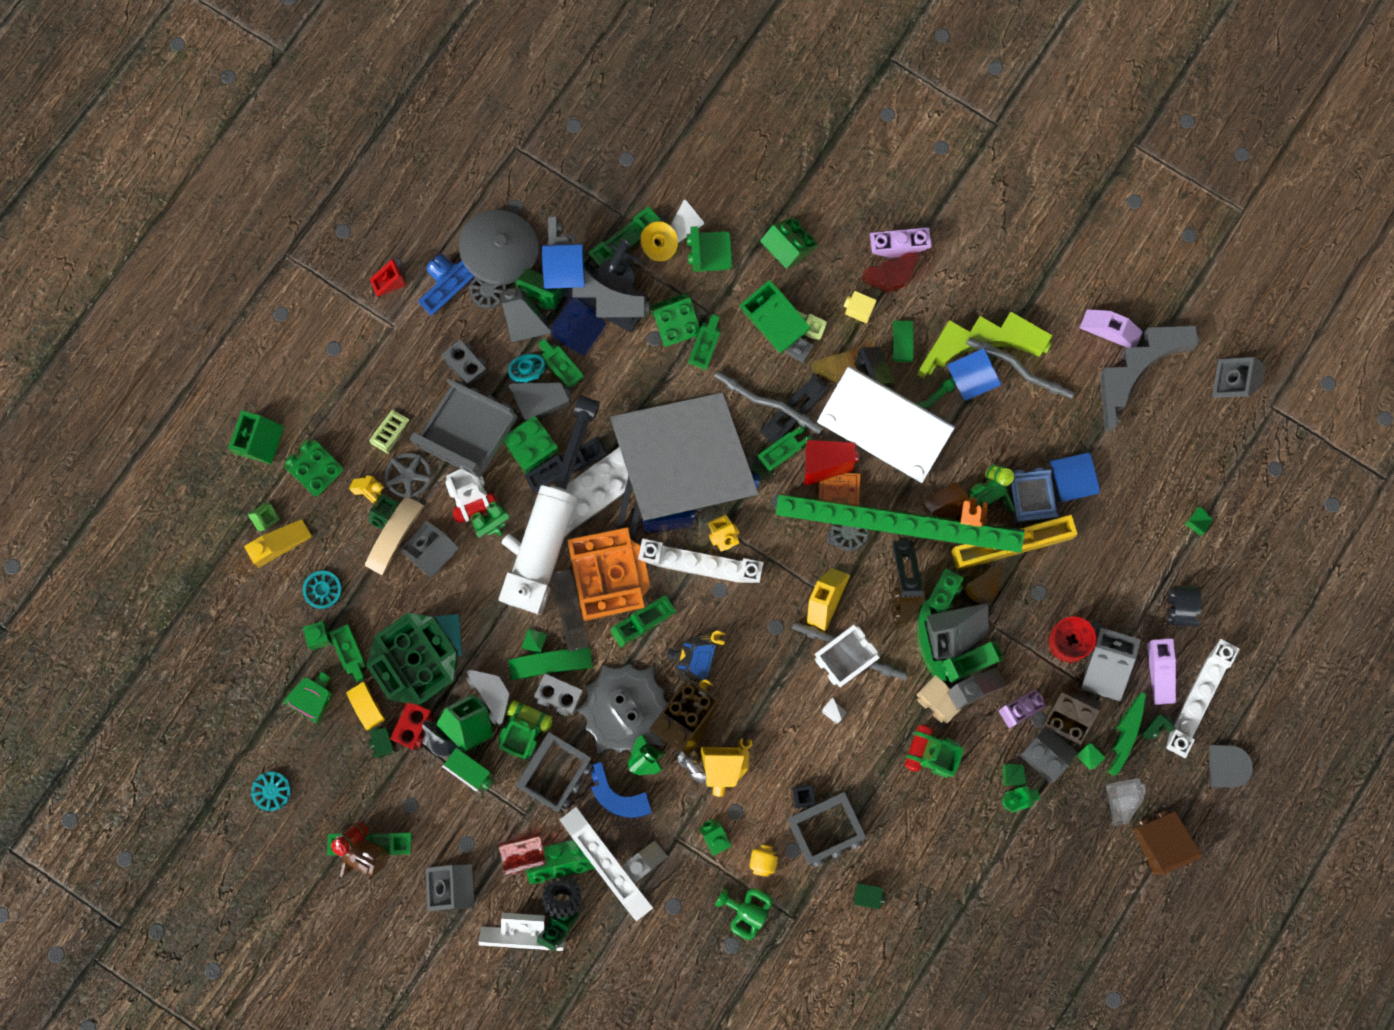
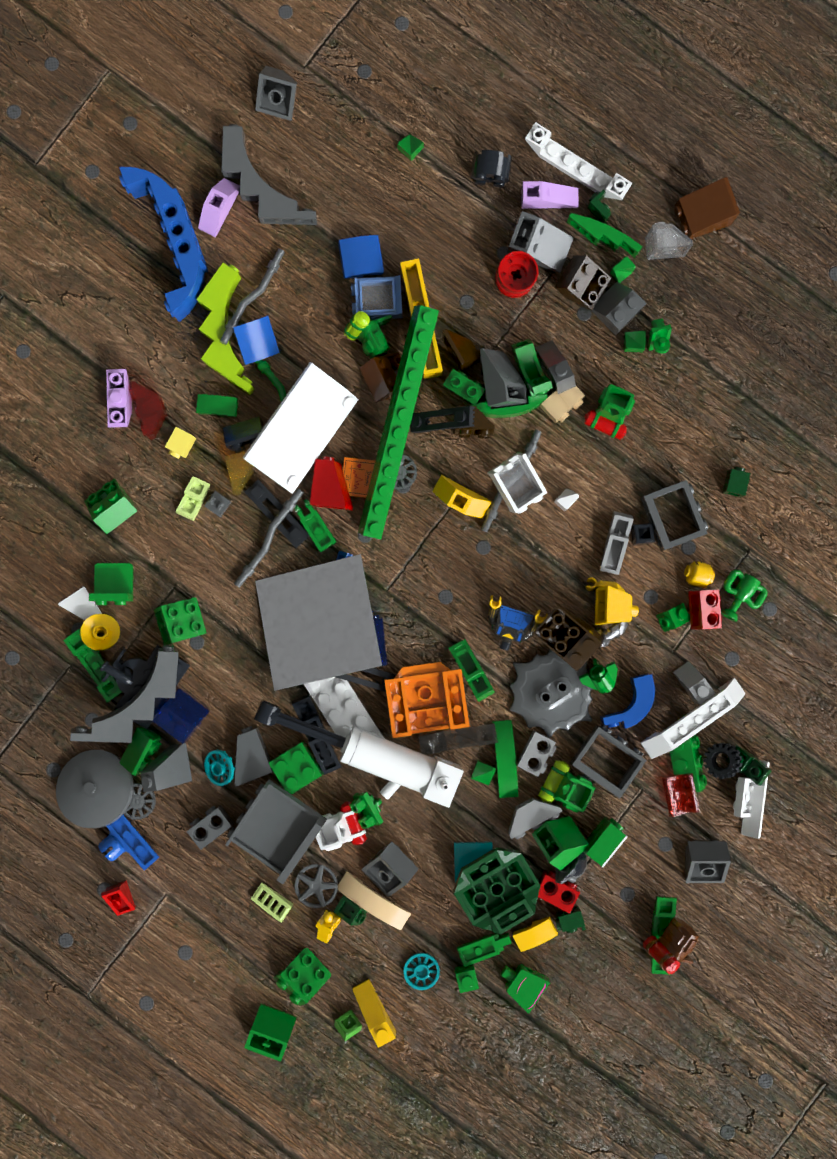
camera: 80 degrees left, 10 degrees up
(271, 791) = (607, 1024): teal wheel -> none
(560, 364) = (217, 734): green hinge -> none
(563, 265) = (122, 728): blue slope -> none
(701, 564) = (420, 613): white slope -> none
(705, 344) = (206, 594): green hinge -> none
(723, 533) = (394, 589): yellow brick -> none
(725, 863) = (705, 609): none -> red brick
(760, 469) = (333, 551): clear smoke window -> none
(774, 317) = (185, 525): green slope -> none
(791, 768) = (616, 542): none -> light grey slope
(972, 514) = (398, 352): orange hinge -> none
(1022, 708) = (576, 327): lavender slope -> none
(1072, 292) = (180, 236): none -> blue slope
(1228, 766) = (638, 147): dark grey tile -> none

